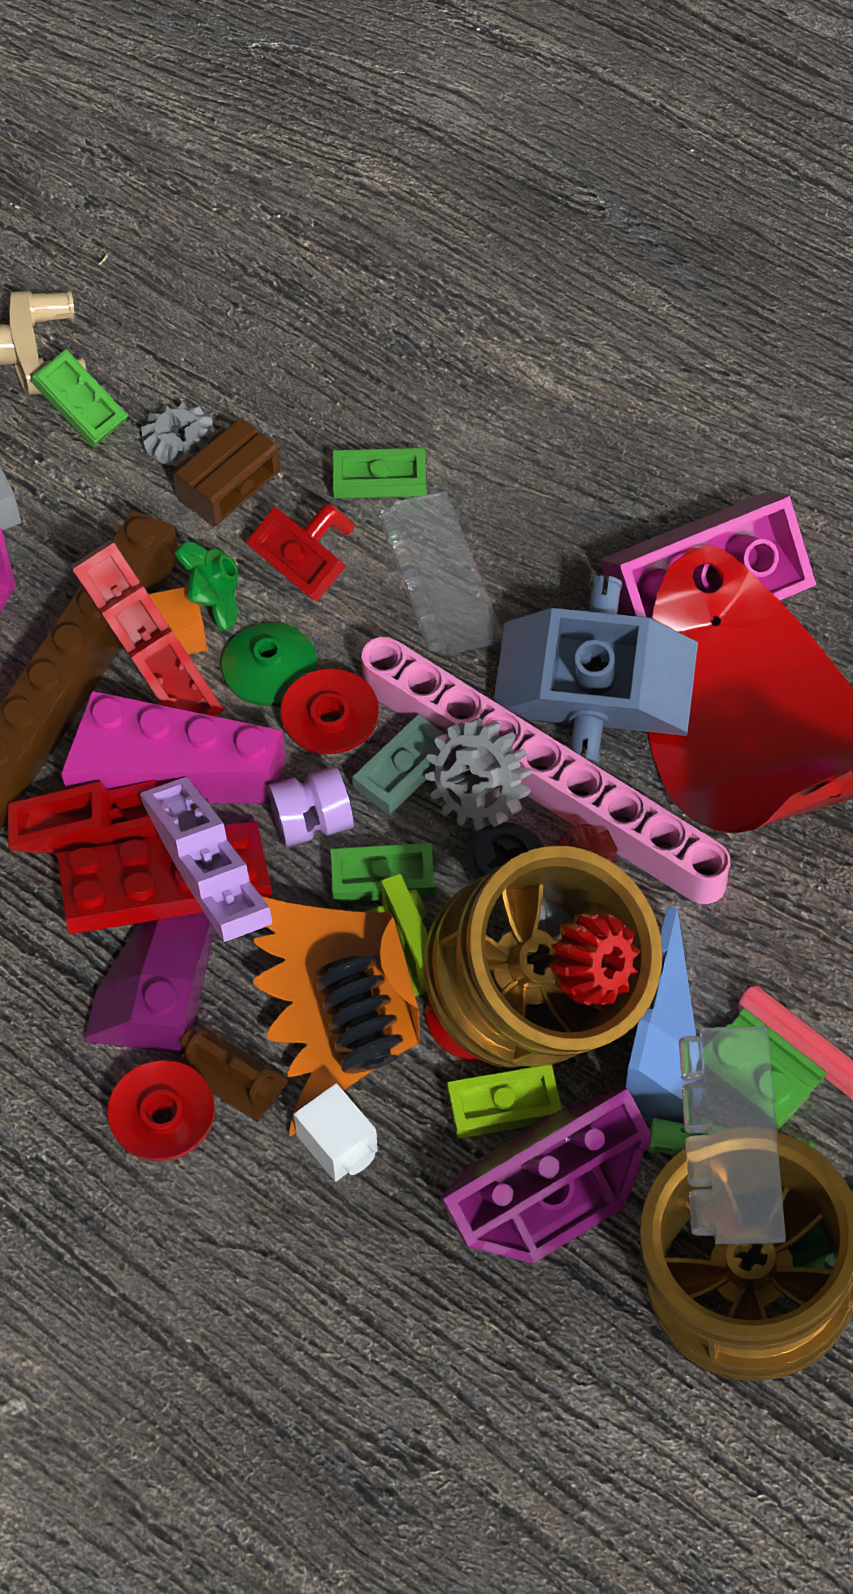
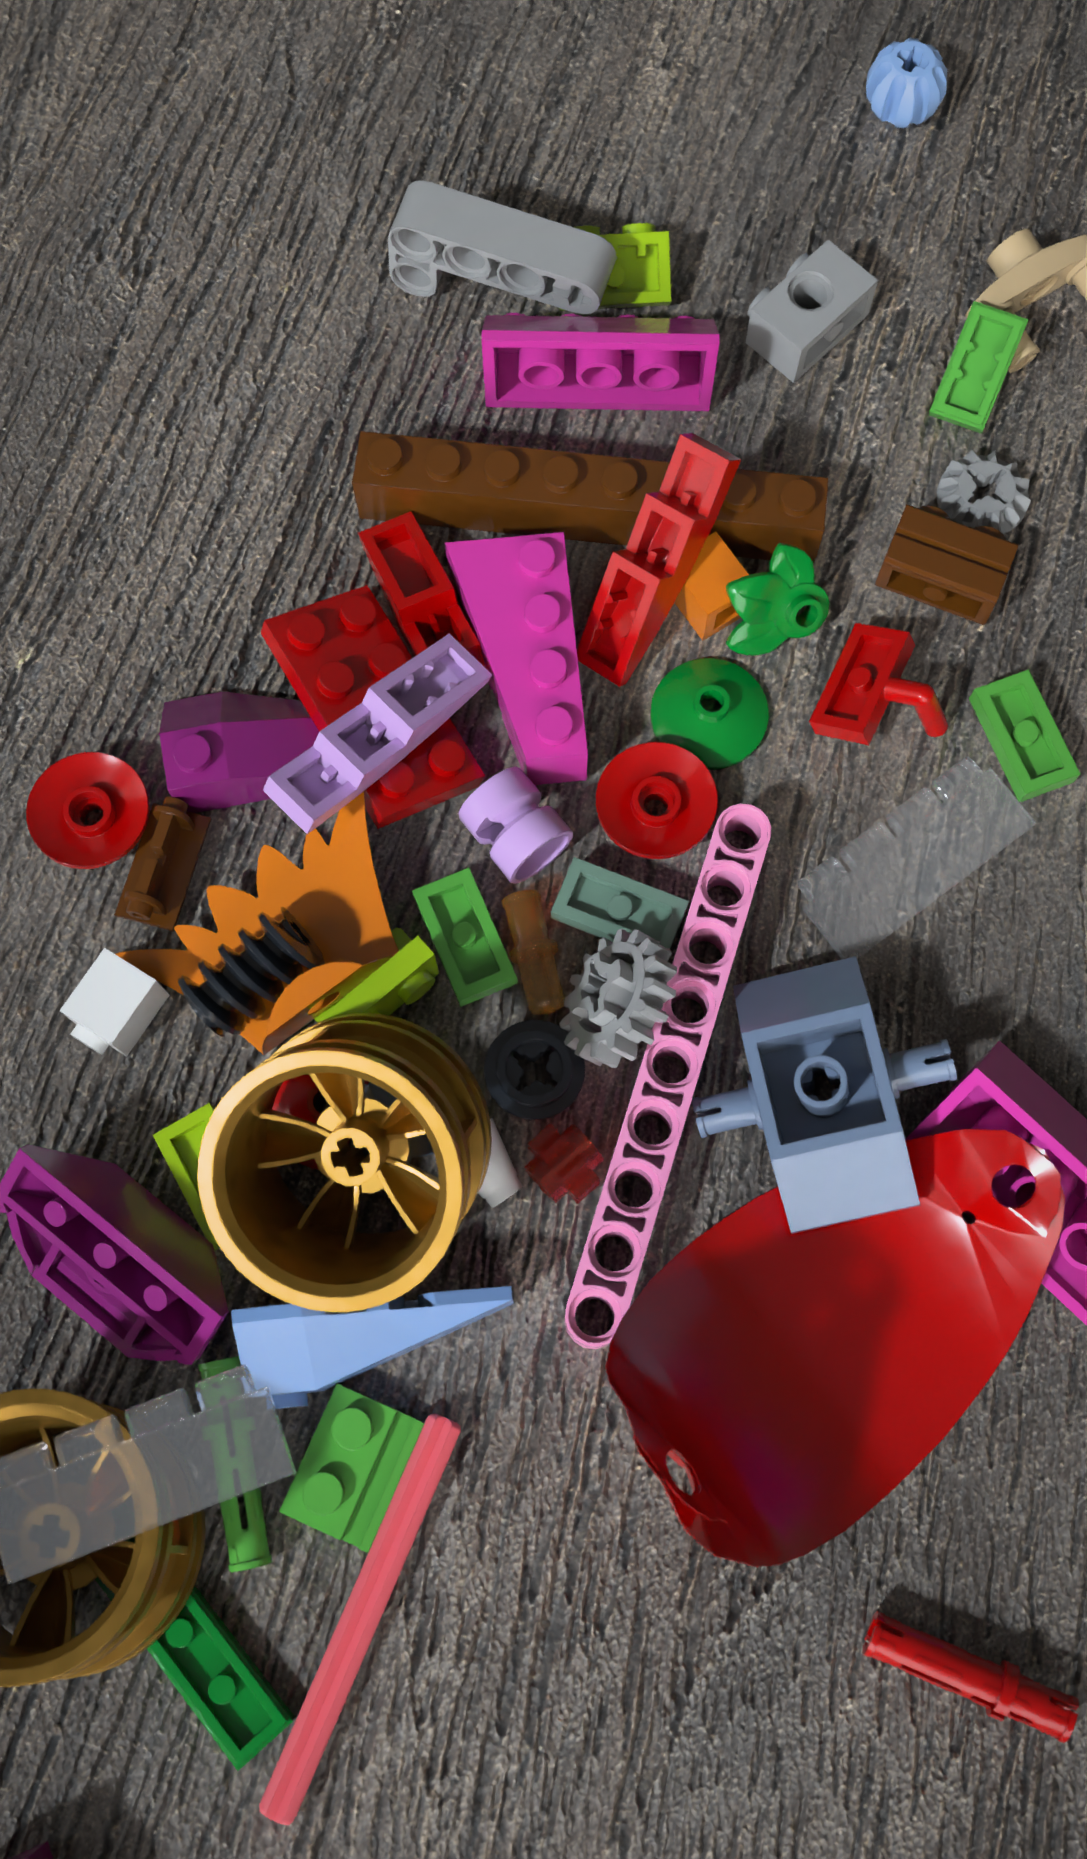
camera: 70 degrees right, 15 degrees up
(413, 829) = (534, 952): none -> clear orange axle
(594, 958) = (332, 1221): red gear -> none

